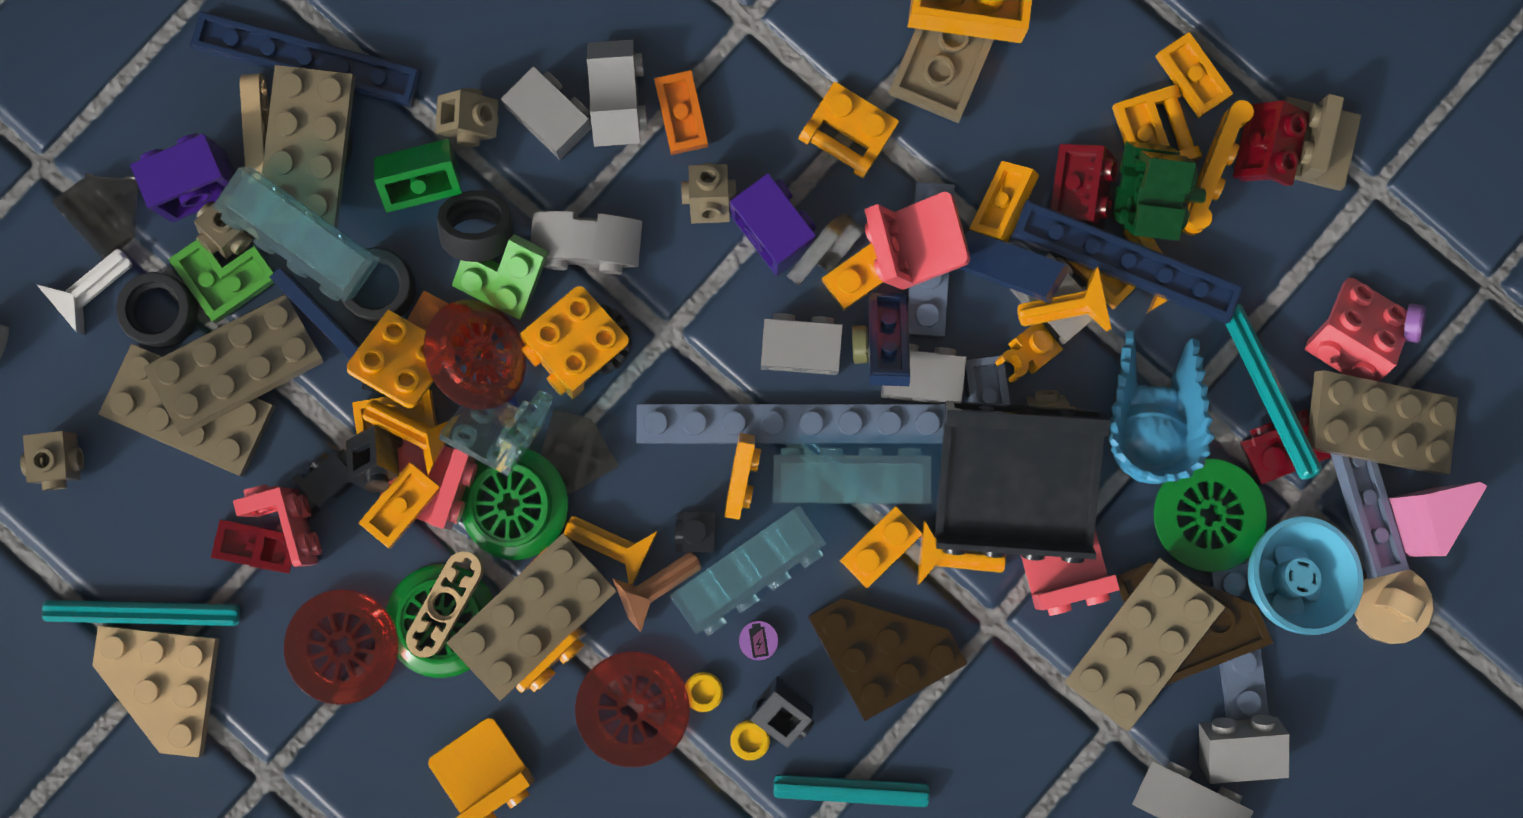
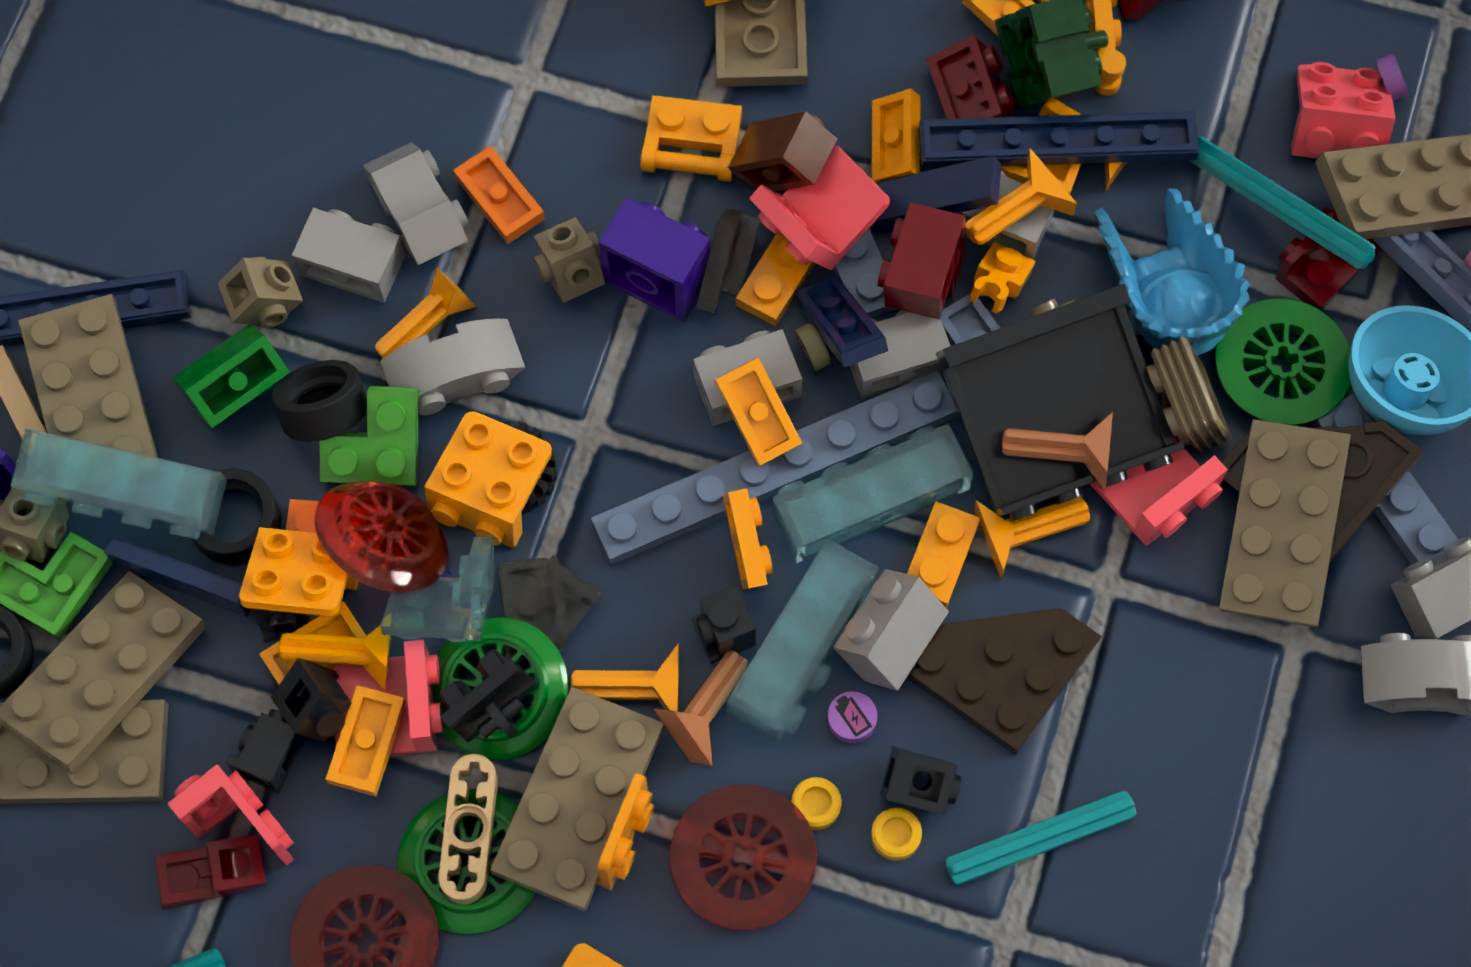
camera: 20 degrees left, 15 degrees down
(498, 524) = (491, 702): none -> black hips
(601, 183) = (443, 300): none -> light orange piece
(792, 384) = (757, 411): none -> light orange plate
(814, 593) = (891, 629): none -> light grey brick
(909, 180) = (783, 152): none -> reddish brown brick
(973, 322) = (924, 260): none -> dark red brick
(1006, 519) = (1089, 448): none -> nougat piece
(1122, 516) = (1185, 385): none -> dark tan brick

